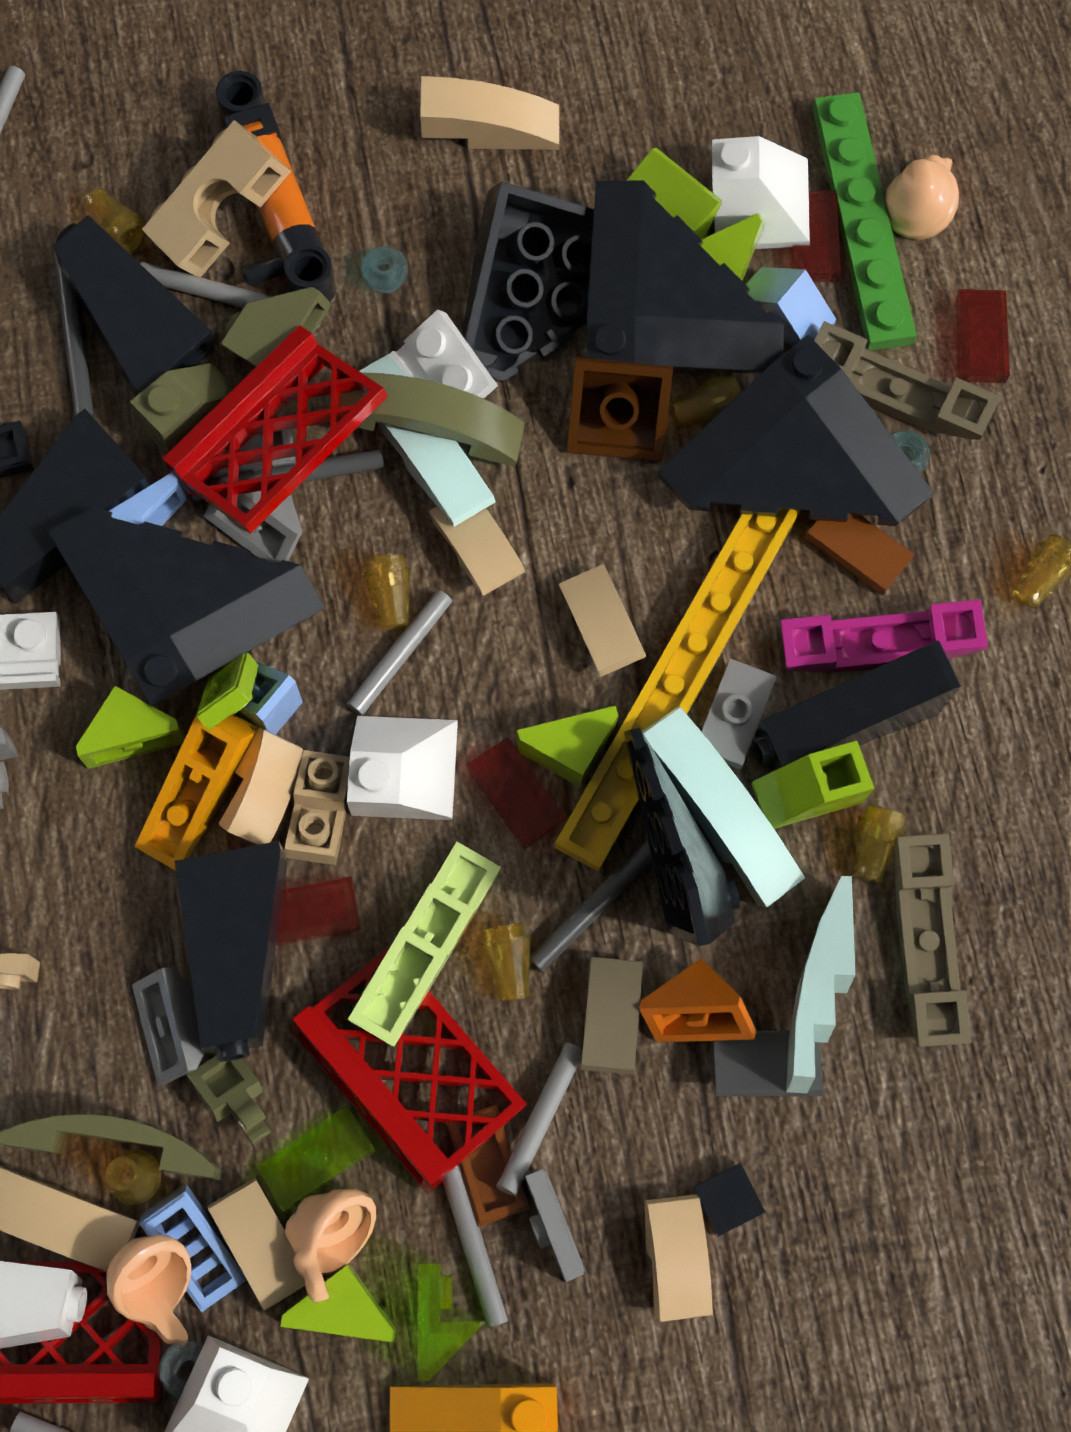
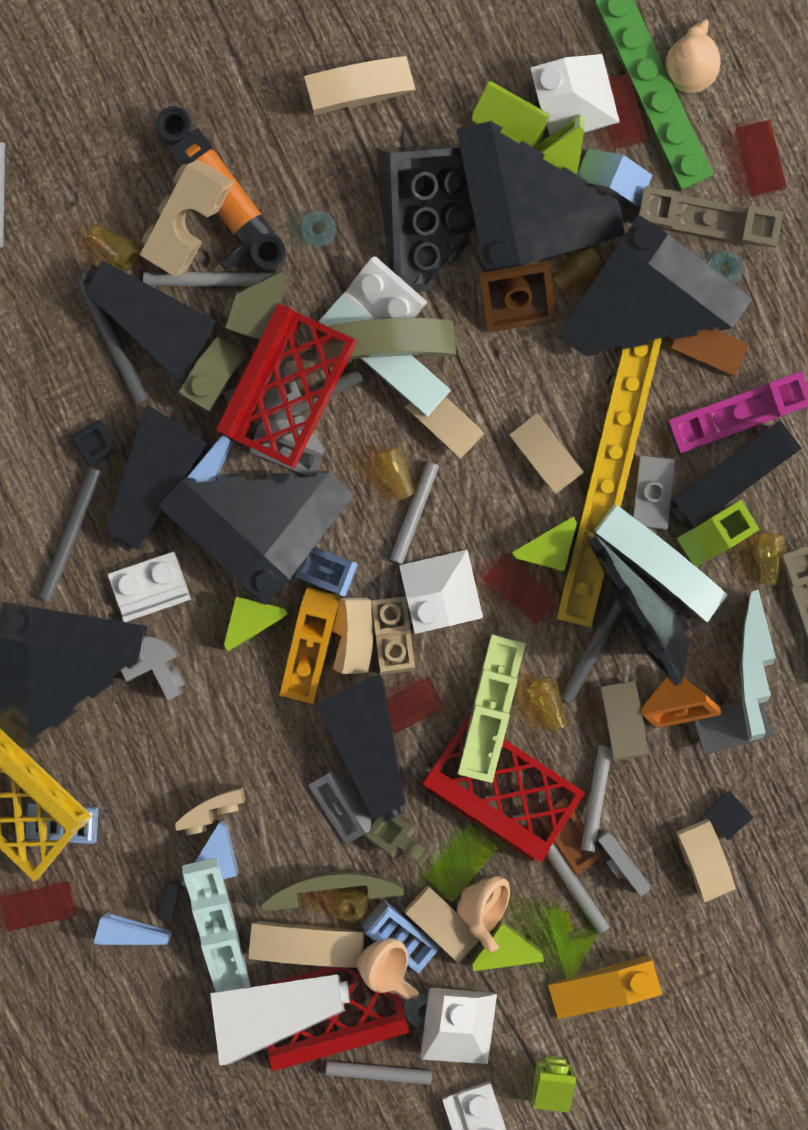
camera: 10 degrees left, 15 degrees up
(228, 691) = (315, 582): lime plate -> none

